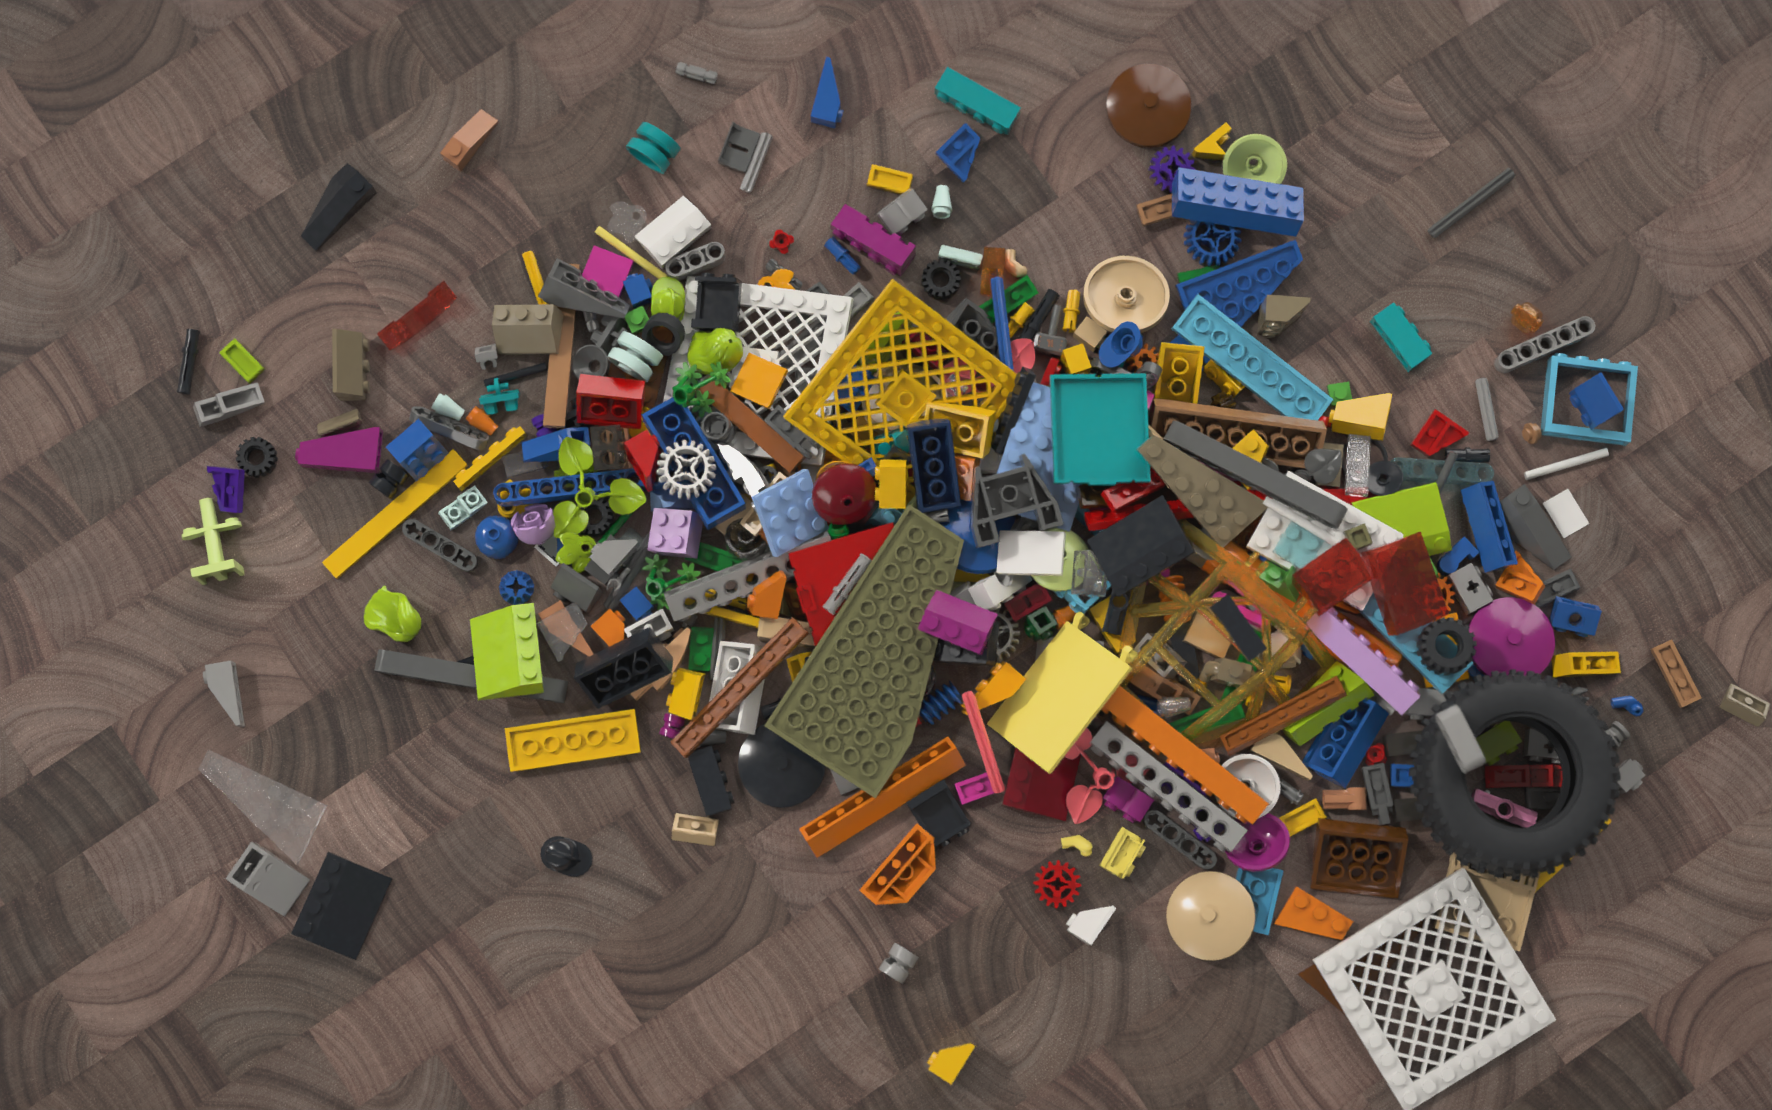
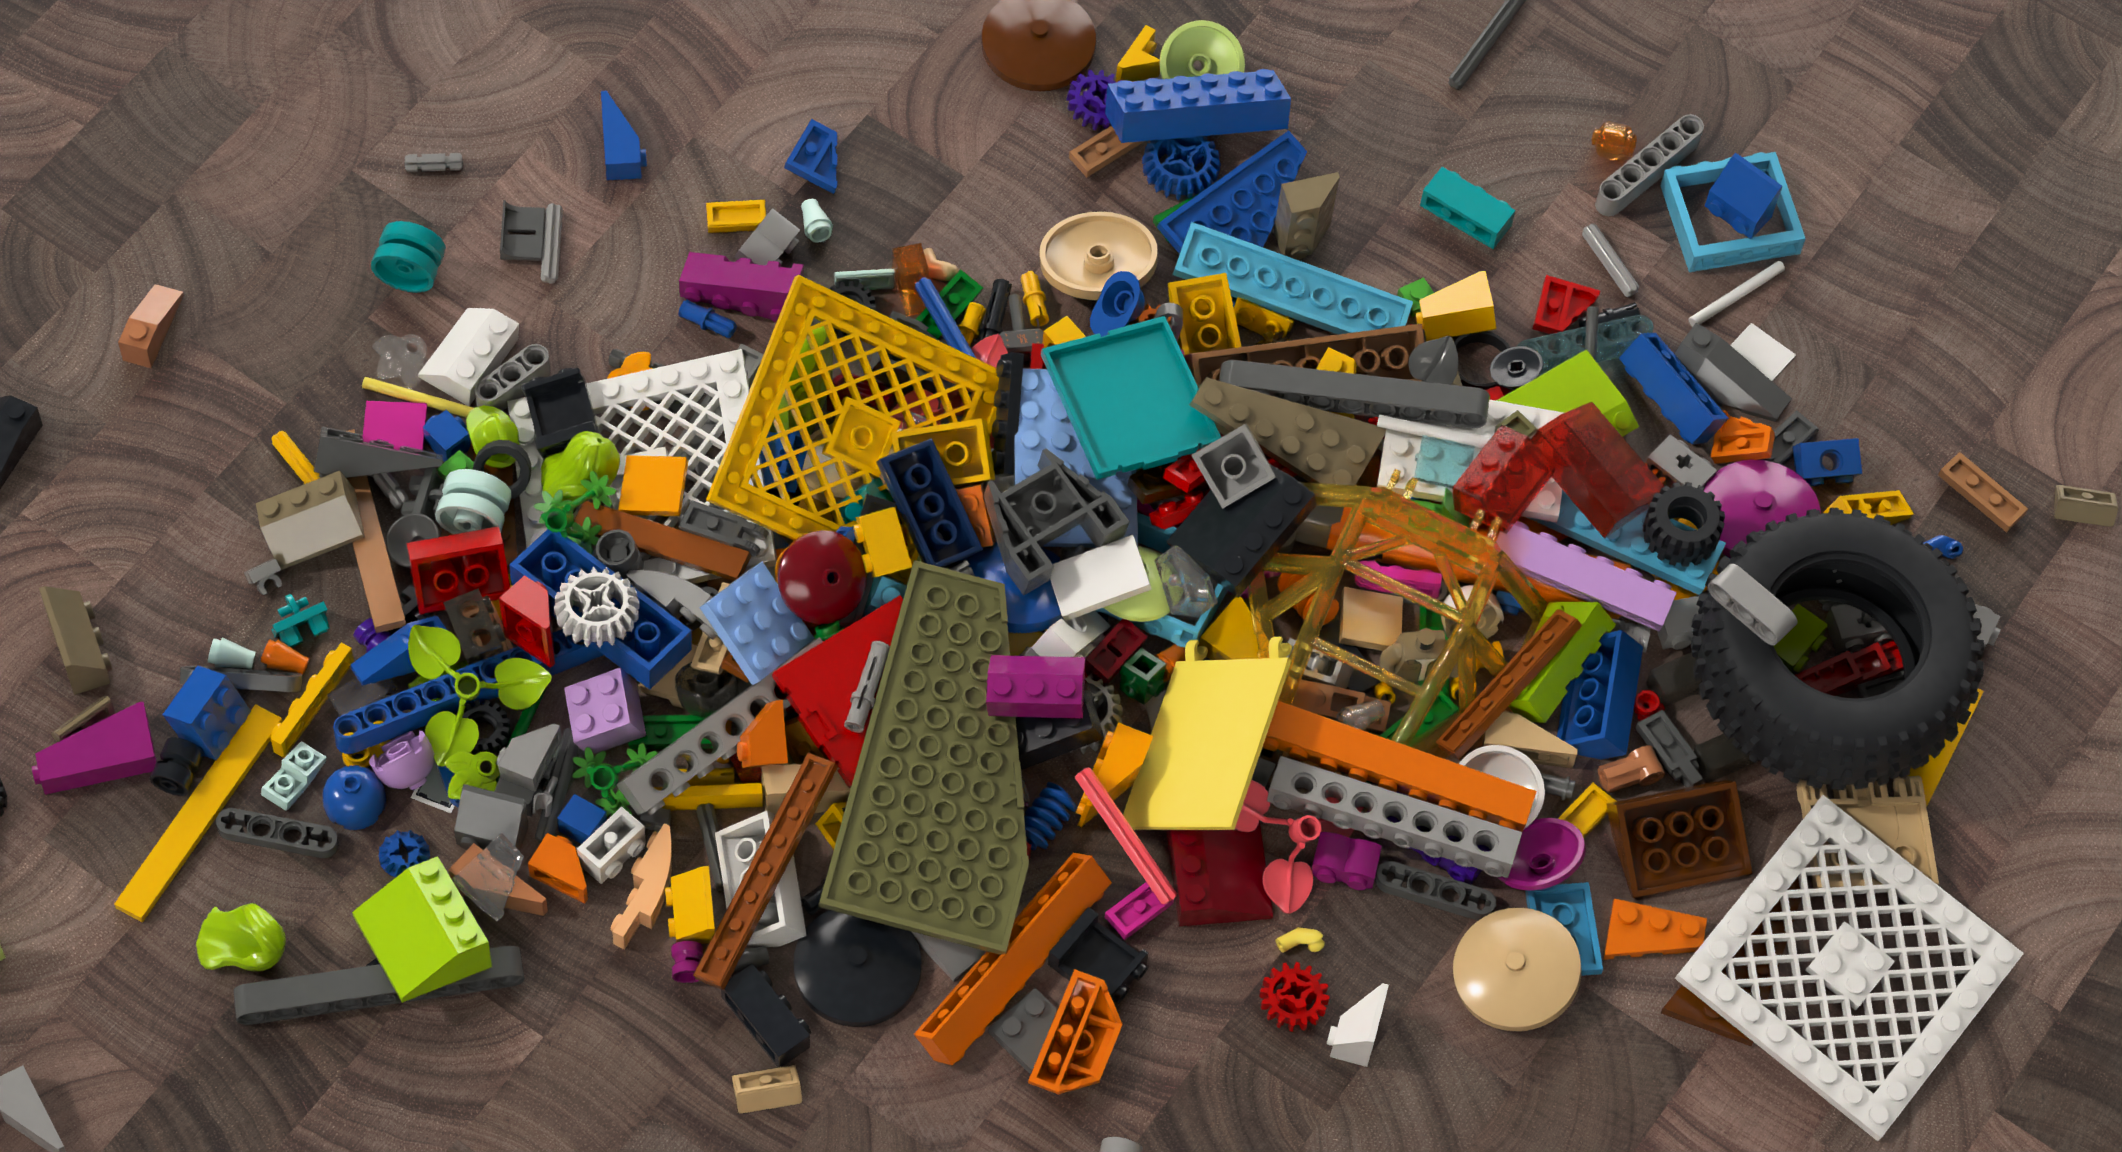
camera: 25 degrees left, 20 degrees down
(418, 317) = (153, 555): clear red slope -> none
(517, 374) = (316, 586): black bar -> none
(572, 740) = (552, 1024): yellow plate -> none
(623, 668) = (594, 895): black brick -> none
(662, 499) = (576, 675): light blue slope -> none
(700, 649) = (690, 847): green plate -> none
(780, 235) = (619, 318): red plate -> none
(875, 845) = (1025, 1028): none -> dark grey wing
(977, 101) = (816, 92): teal brick -> none
(1090, 334) = (1076, 309): tan brick -> none
(1115, 616) = (1238, 626): black piece -> none
(1122, 853) = (1366, 930): light yellow hinge -> none
(1148, 508) = (1234, 465): none -> light grey slope
(1238, 627) = (1409, 571): black tile -> none
(1357, 465) = (1478, 361): clear tile -> none
(1400, 775) = (1692, 719): blue plate -> none
(1449, 561) = (1650, 429): blue leg -> none
(1531, 433) = (1678, 269): medium nougat plate -> none

